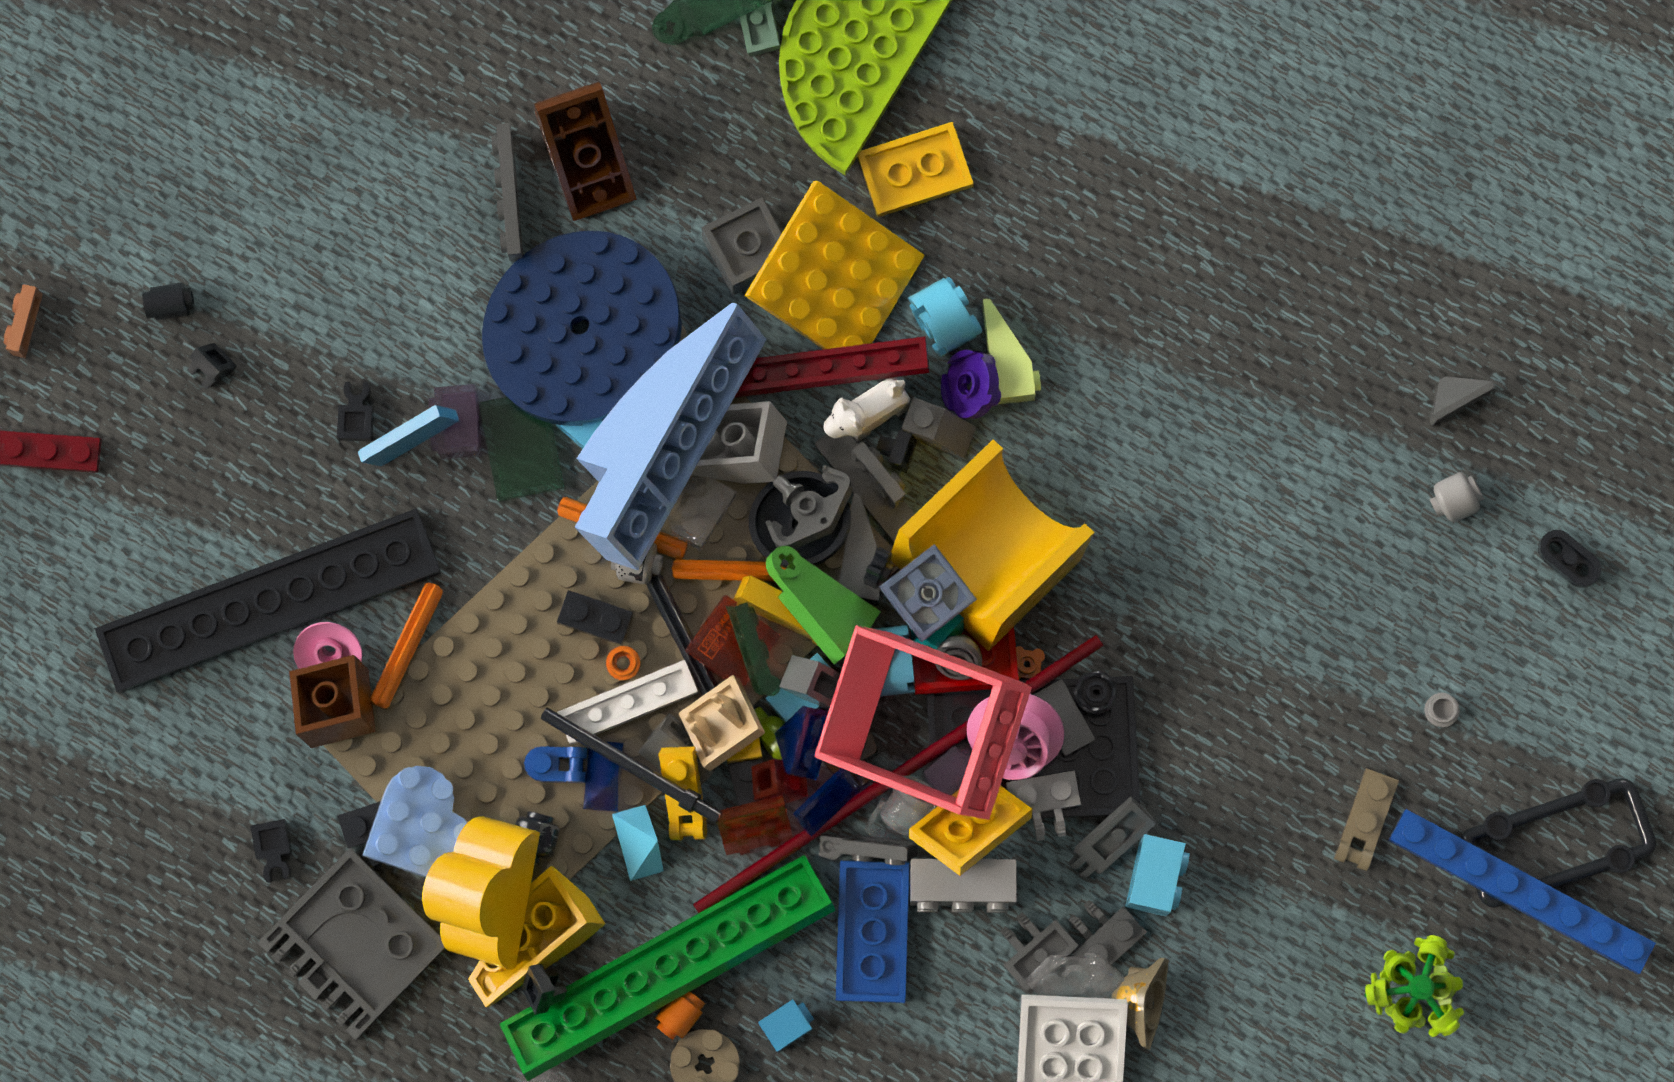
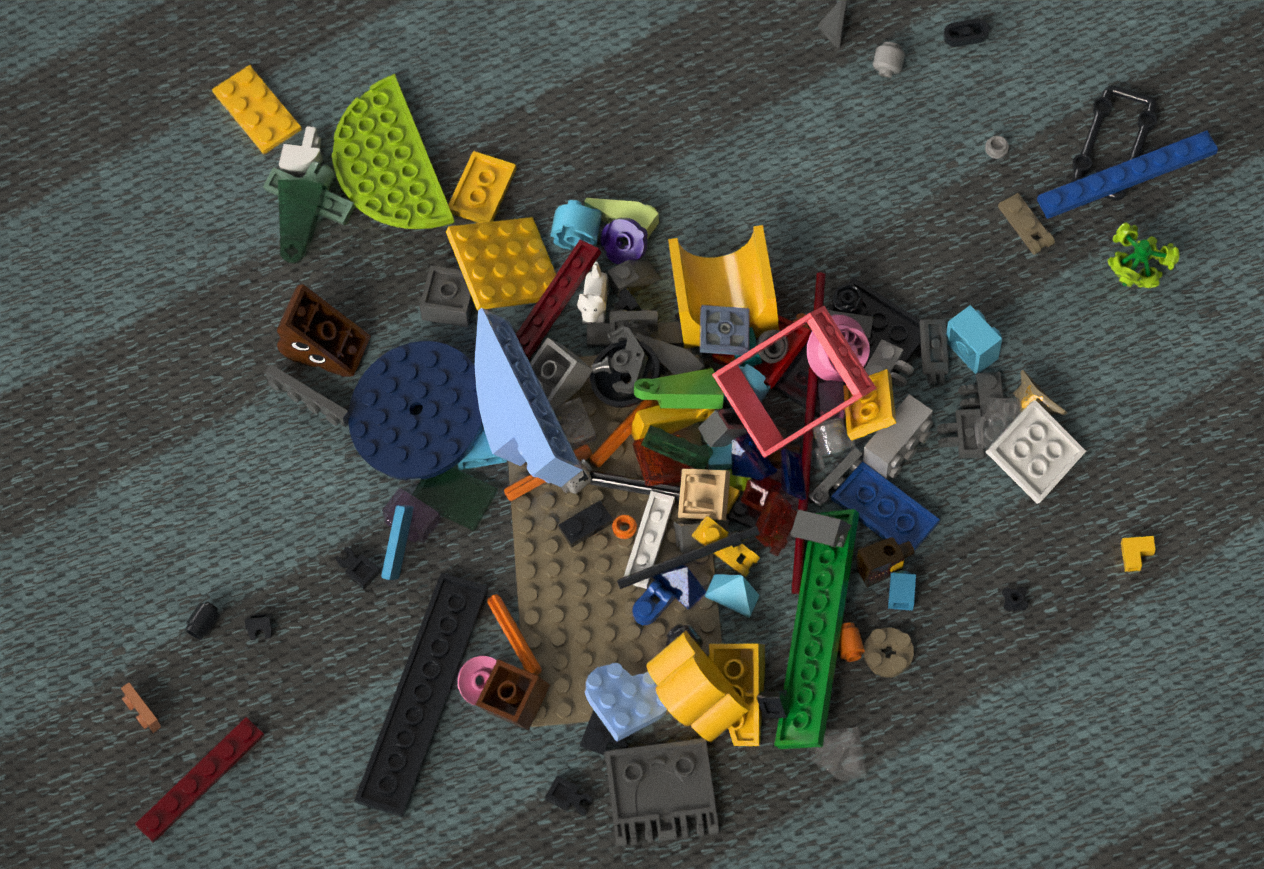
camera: 50 degrees left, 15 degrees down
(778, 884) = (820, 529): none -> dark grey hinge
(788, 972) = (881, 559): none -> dark brown torso
(879, 568) = (688, 347): black plate -> none

